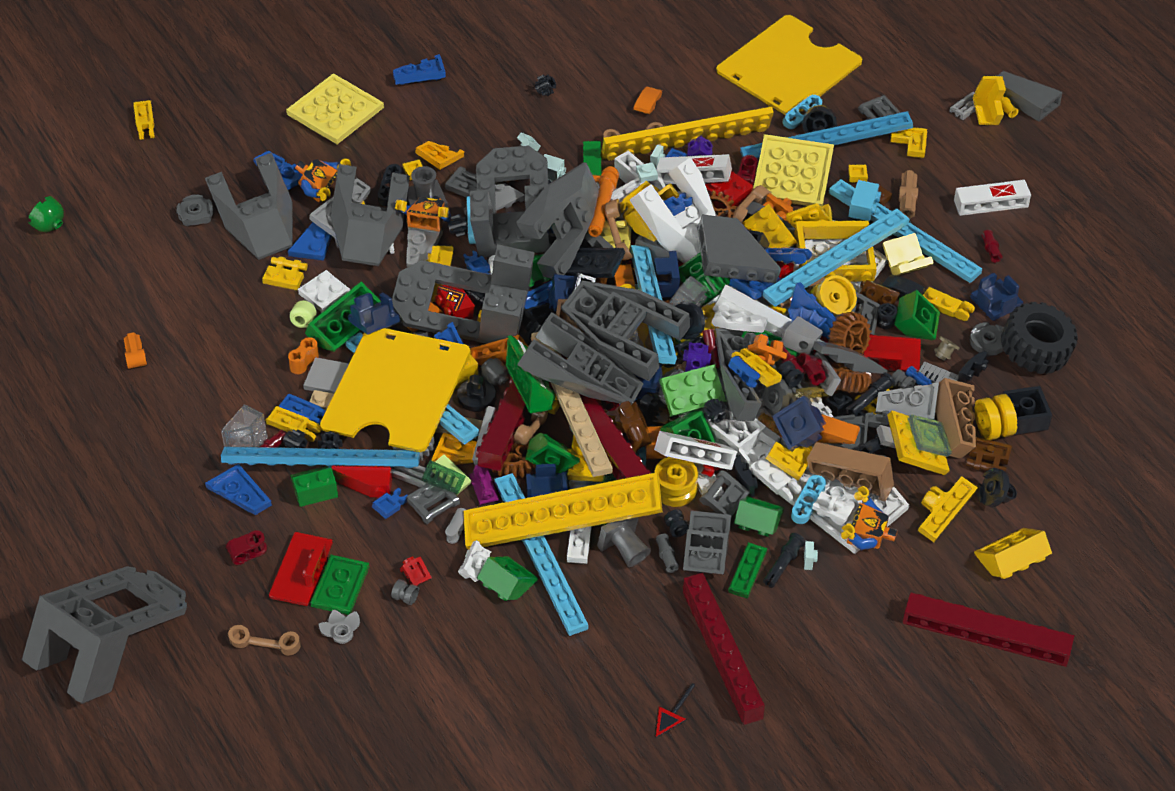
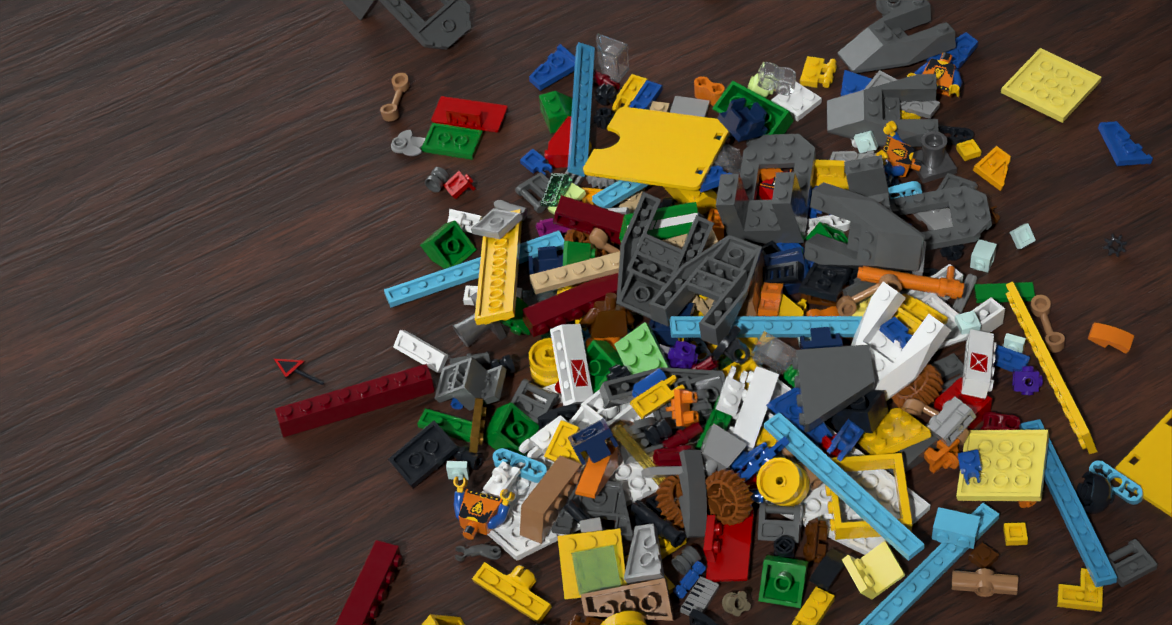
camera: 95 degrees right, 0 degrees up
(245, 548) = (490, 78): dark red piece -> none
(308, 292) = (776, 78): none -> clear brick
(399, 236) = (865, 141): none -> light aqua plate
(489, 525) = (496, 223): none -> light grey tile
(654, 594) = (420, 351): none -> white plate
(760, 187) = (951, 421): none -> light grey brick
(761, 534) = (477, 425): none -> pearl gold plate
(793, 190) = (970, 465): none -> blue plate
(794, 581) = (423, 454): none -> black plate
(810, 213) = (923, 483): yellow bracket -> none
(902, 527) = (484, 550): none -> dark grey arm

